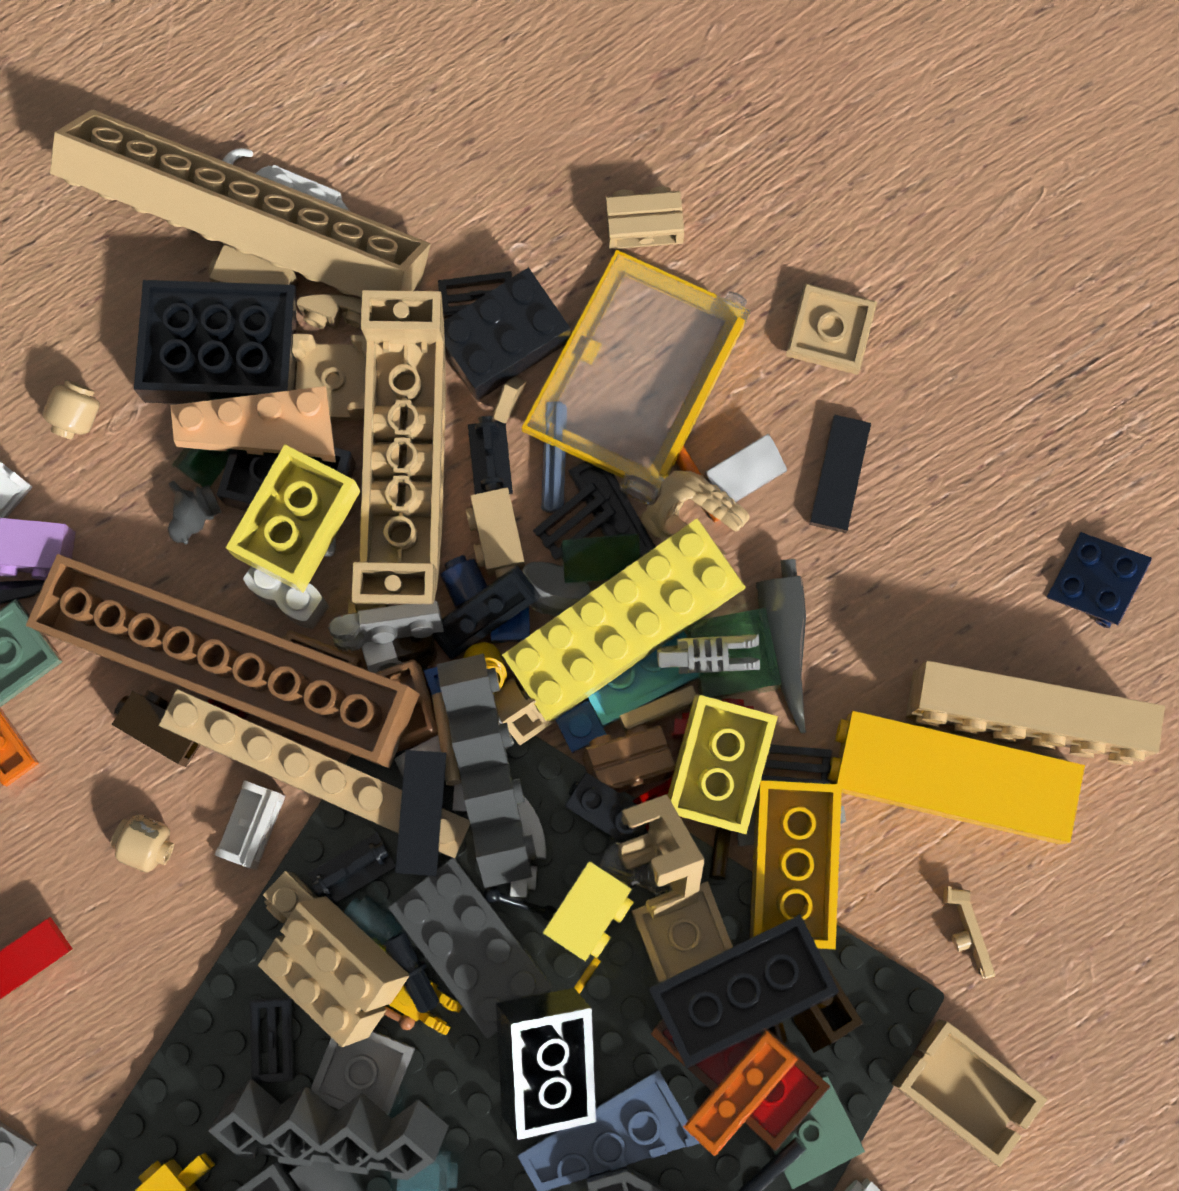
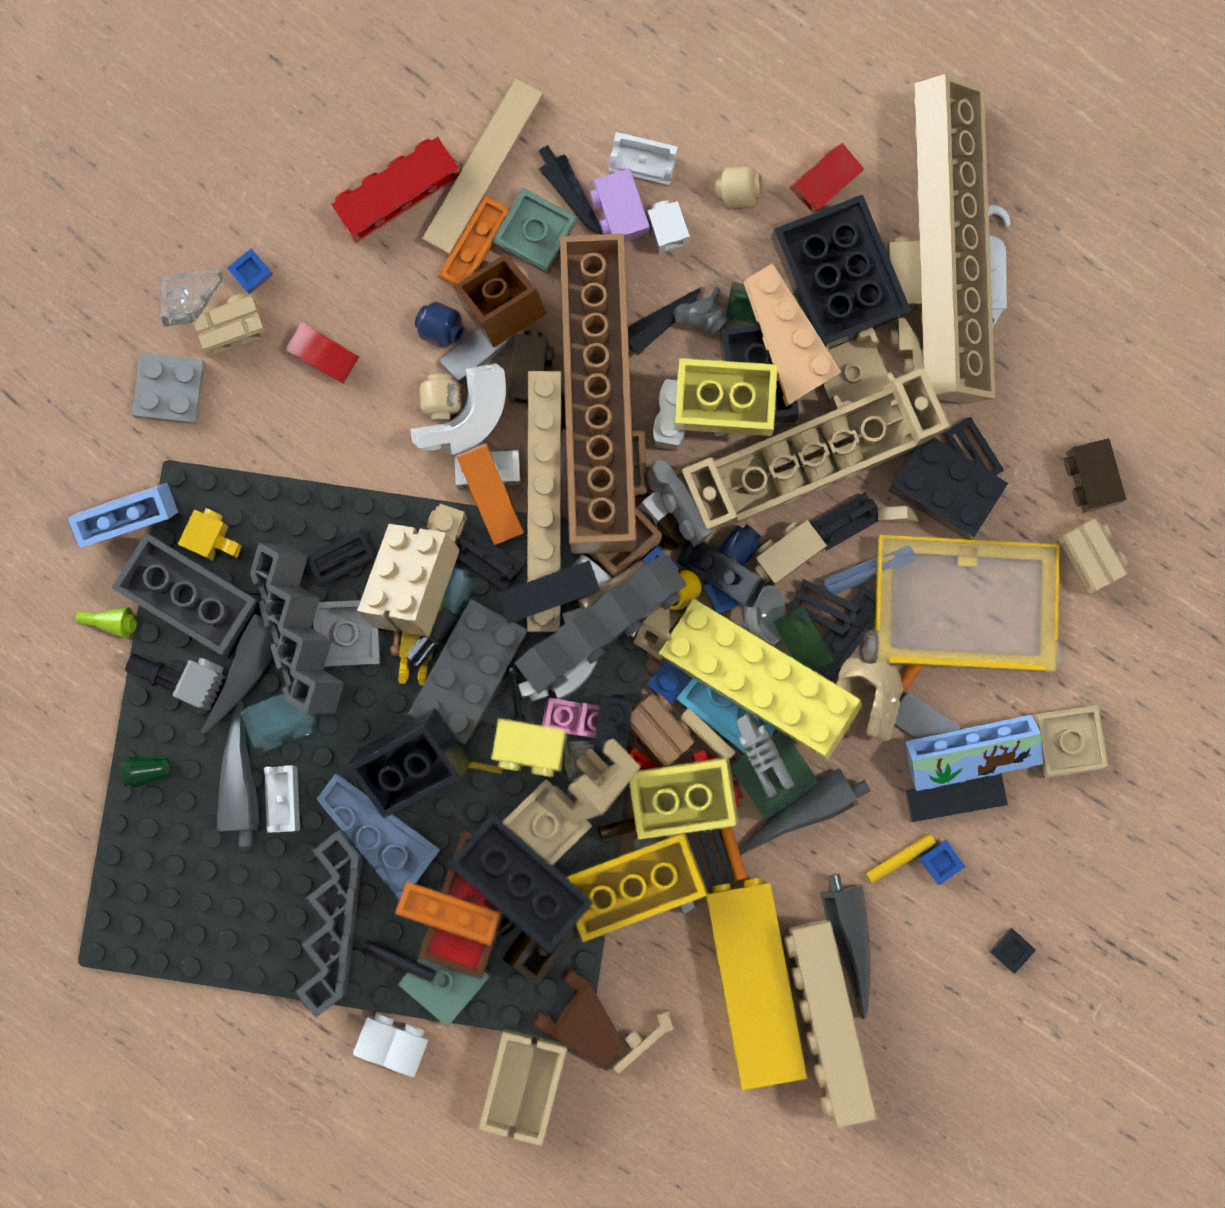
camera: 70 degrees right, 5 degrees up
(59, 808) = (439, 325): none -> dark blue head
(64, 725) = (500, 300): none -> reddish brown brick
(75, 505) = (667, 226): none -> white brick
(107, 314) = (827, 178): none -> red hinge
(111, 782) = (471, 353): none -> light grey slope
(177, 567) = (651, 327): none -> black bar
(187, 812) = (477, 418): none -> white arch
(278, 833) = (490, 494): none -> orange tile
(560, 180) = (1094, 476): none -> dark brown brick
(572, 852) = (571, 716): none -> bright pink slope
(801, 431) = (974, 752): none -> light blue brick
(803, 739) = (733, 853): none -> orange piece
(881, 561) = (901, 858): none -> yellow piece
(904, 518) = (942, 862): none -> blue plate
(915, 642) = (848, 917): none -> dark grey piece
(922, 991) = (583, 1023): none -> reddish brown flag
(1028, 487) = (1012, 950): none -> black tile
(1099, 579) = (961, 1034): dark blue hinge -> none

